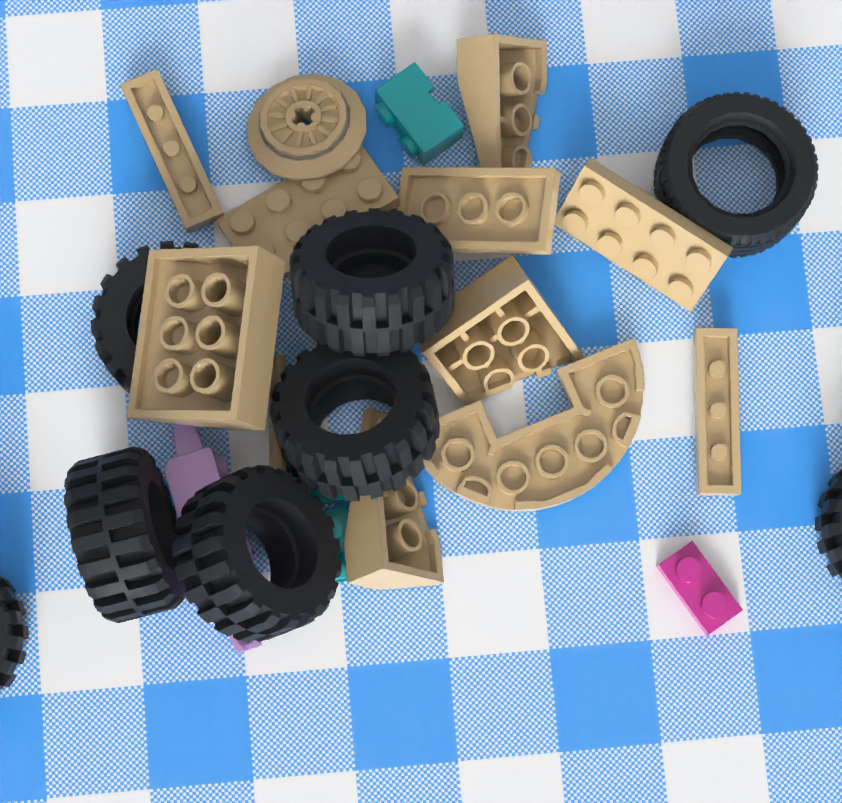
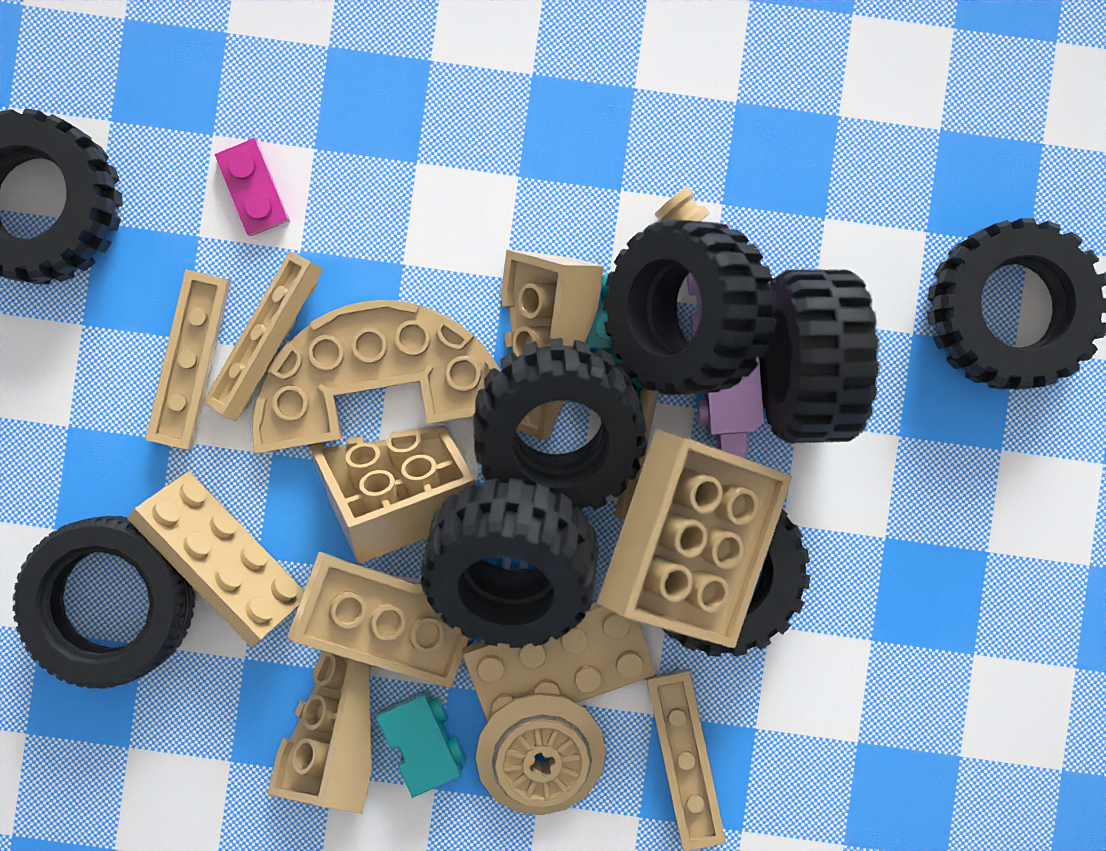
camera: 160 degrees left, 10 degrees up
(283, 655) = (682, 208): none -> tan wheel
(653, 448) = (263, 335): none -> tan plate

